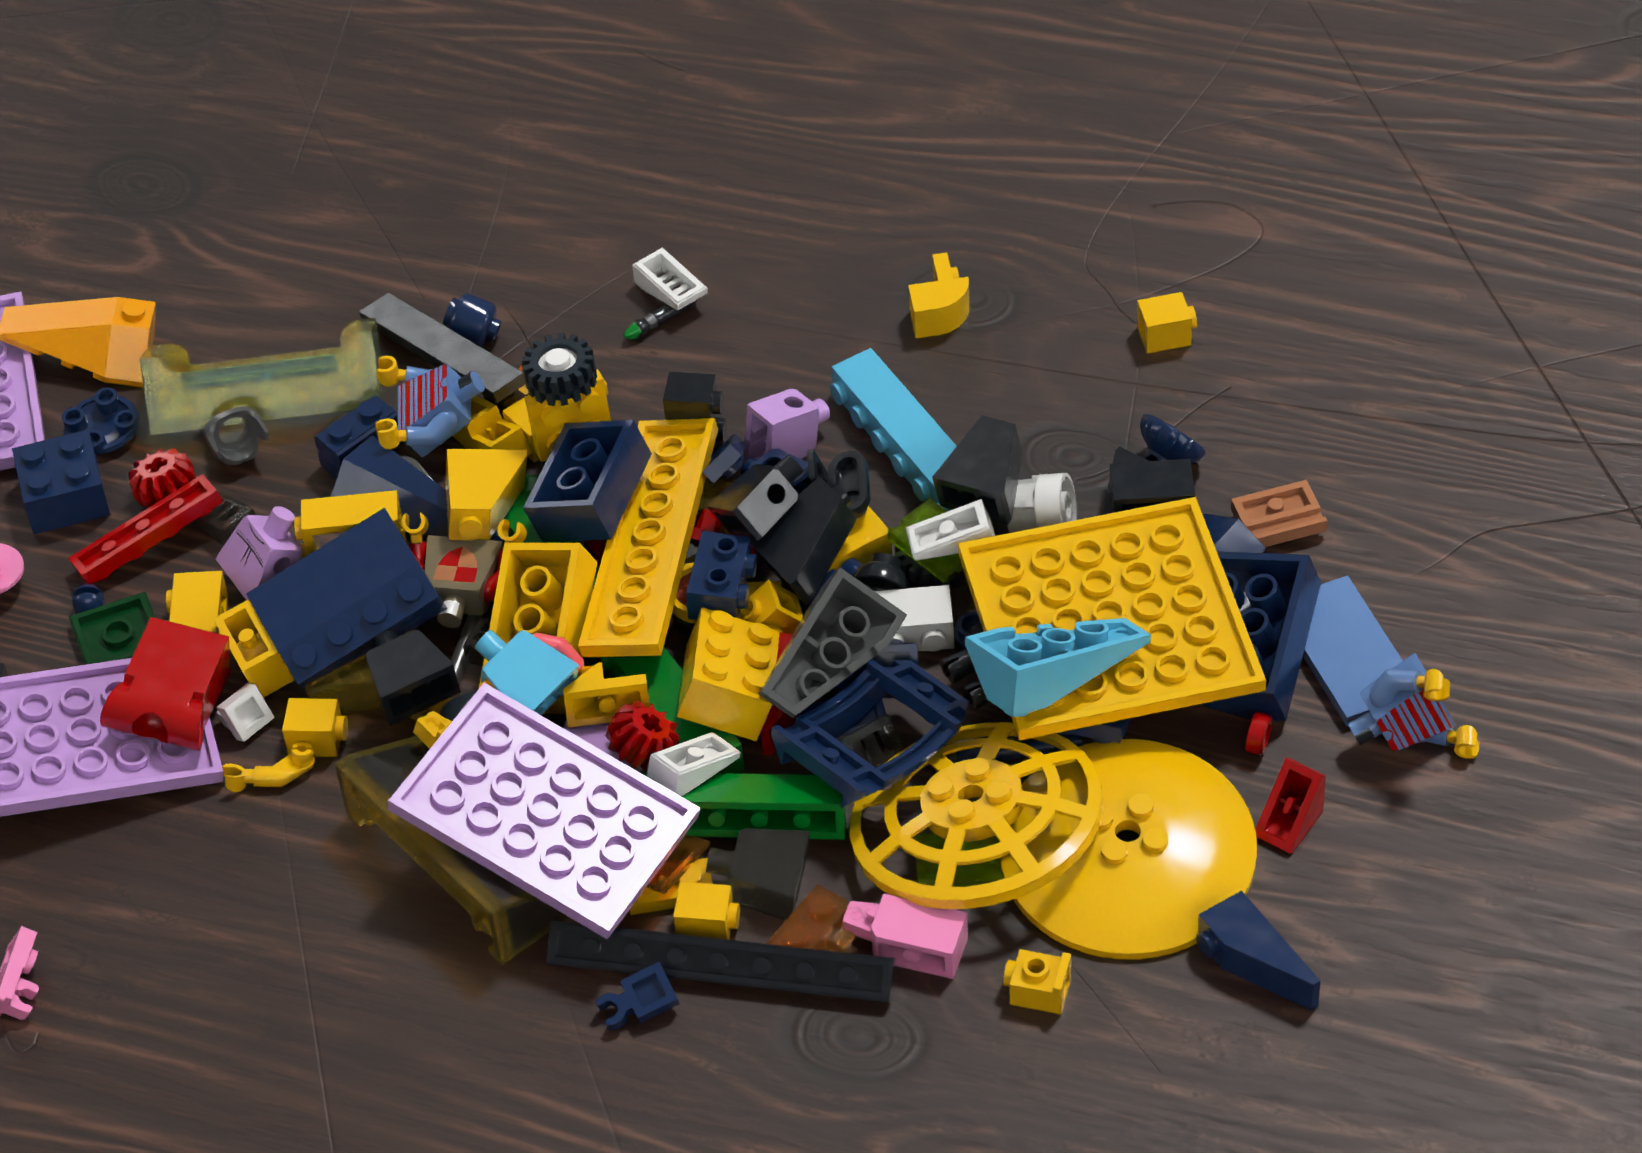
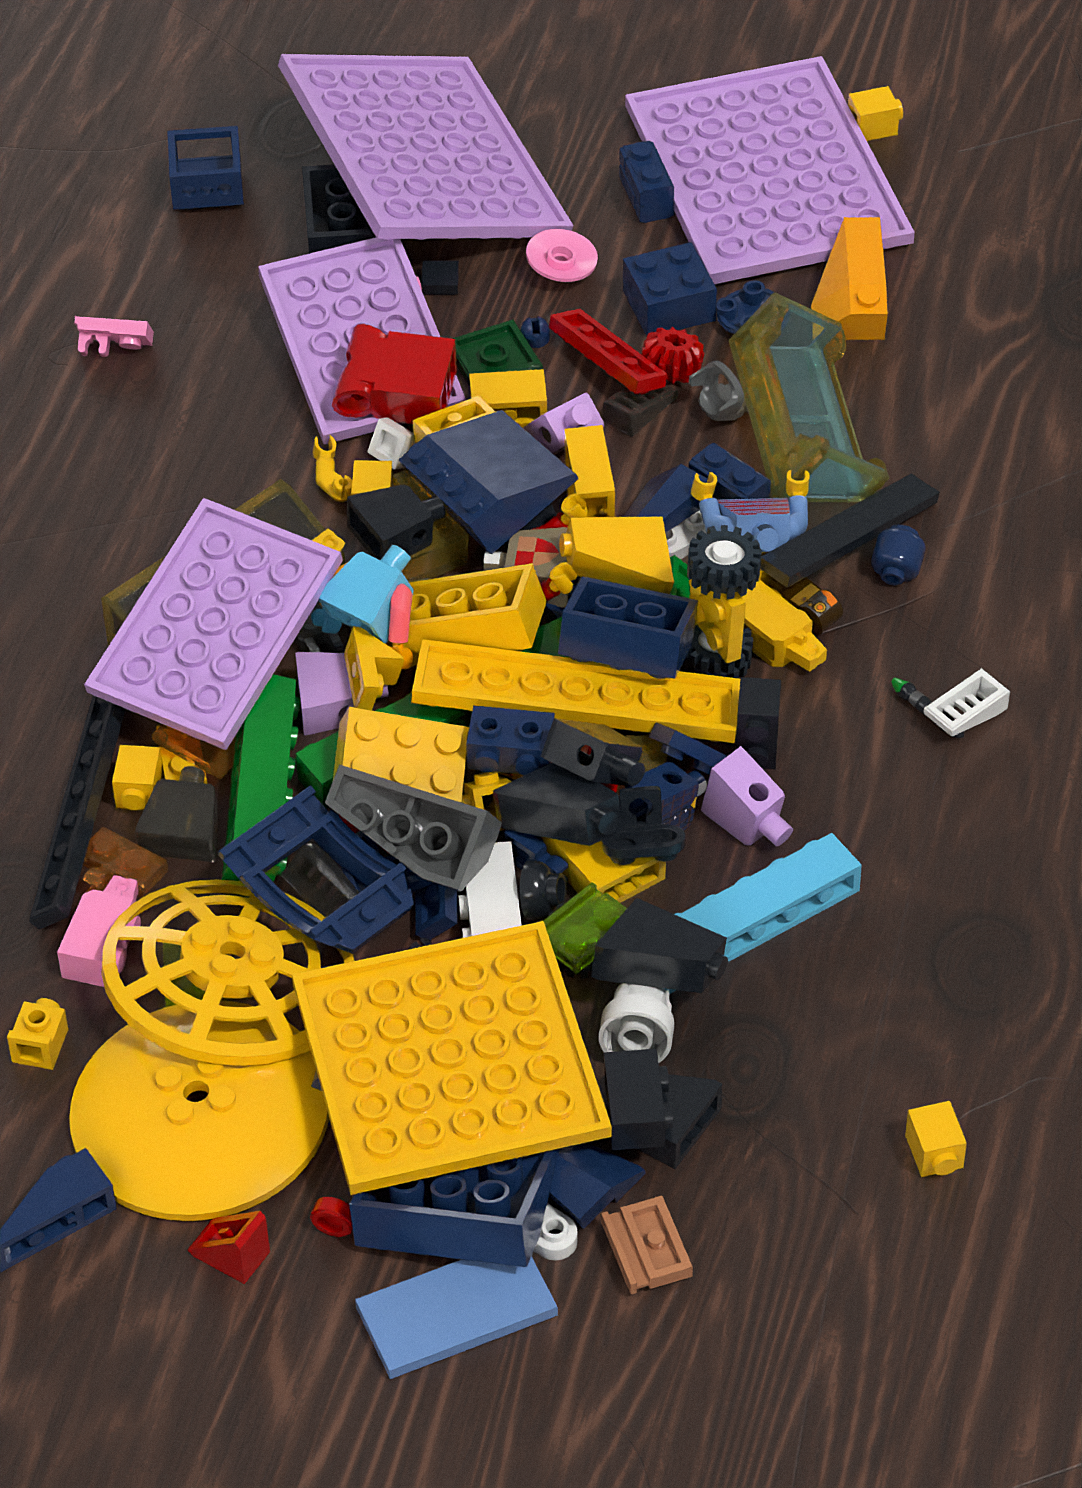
camera: 85 degrees right, 0 degrees up
(640, 732) = (315, 686): red gear -> none
(645, 994) = (51, 740): dark blue plate -> none
(691, 762) = (287, 739): white slope -> none
(939, 304) = (956, 941): yellow brick -> none
(943, 532) = (571, 926): white slope -> none
(1042, 667) = (358, 977): medium azure wedge -> none
(1168, 442) = (739, 1136): dark blue hair -> none
(1410, 710) = (342, 1343): torso -> none

